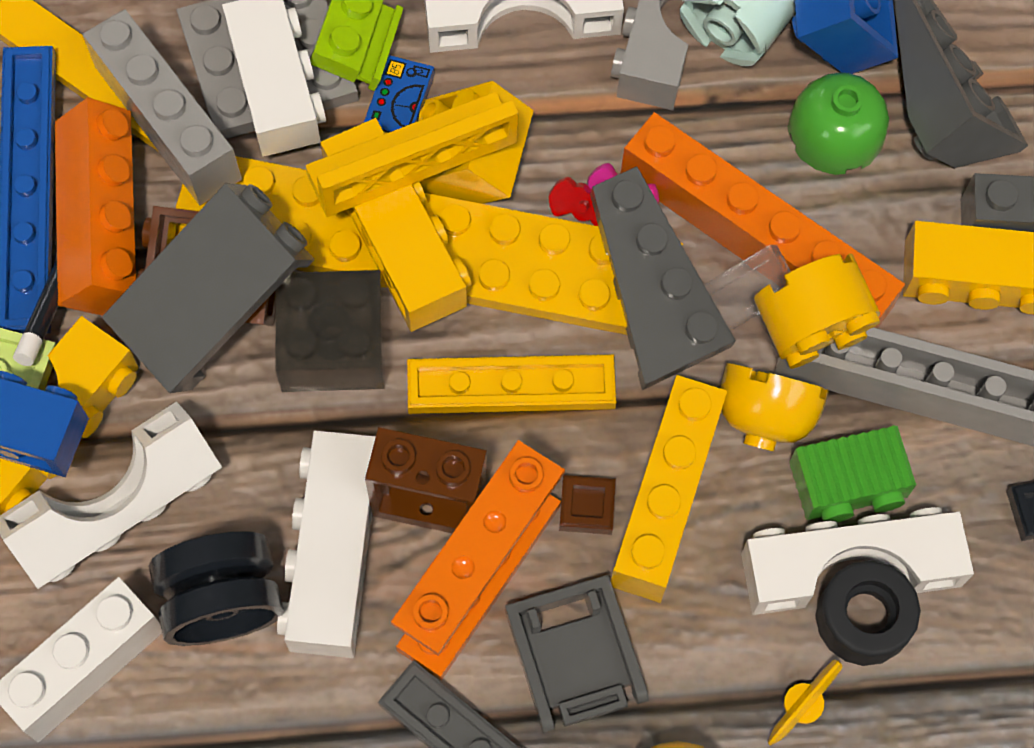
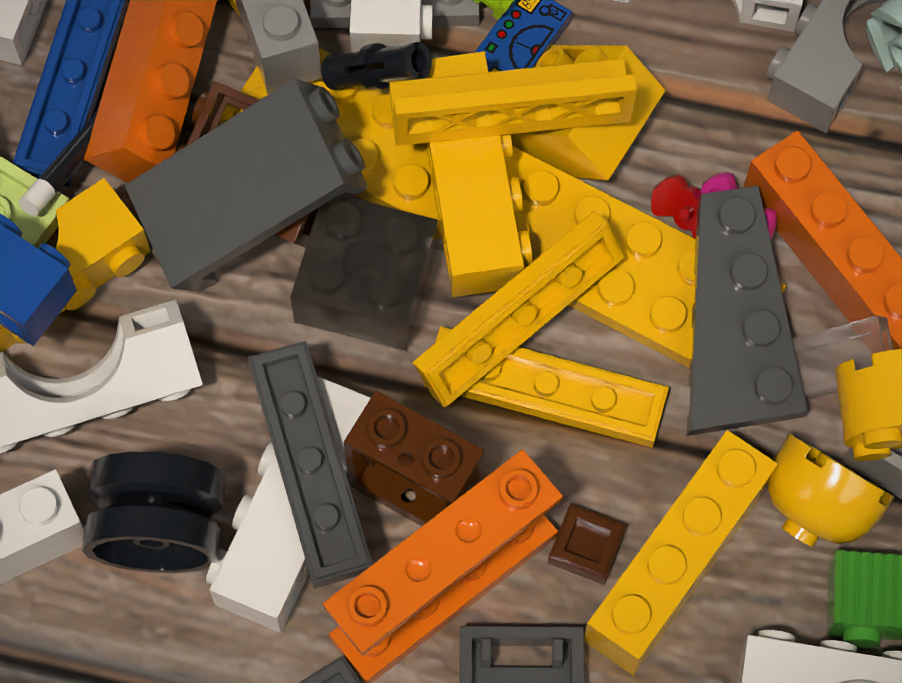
camera: 20 degrees right, 0 degrees up
(309, 146) = (400, 64): none -> black pin
(338, 507) = (310, 464): none -> dark grey tile
(471, 326) = (519, 309): none -> yellow tile

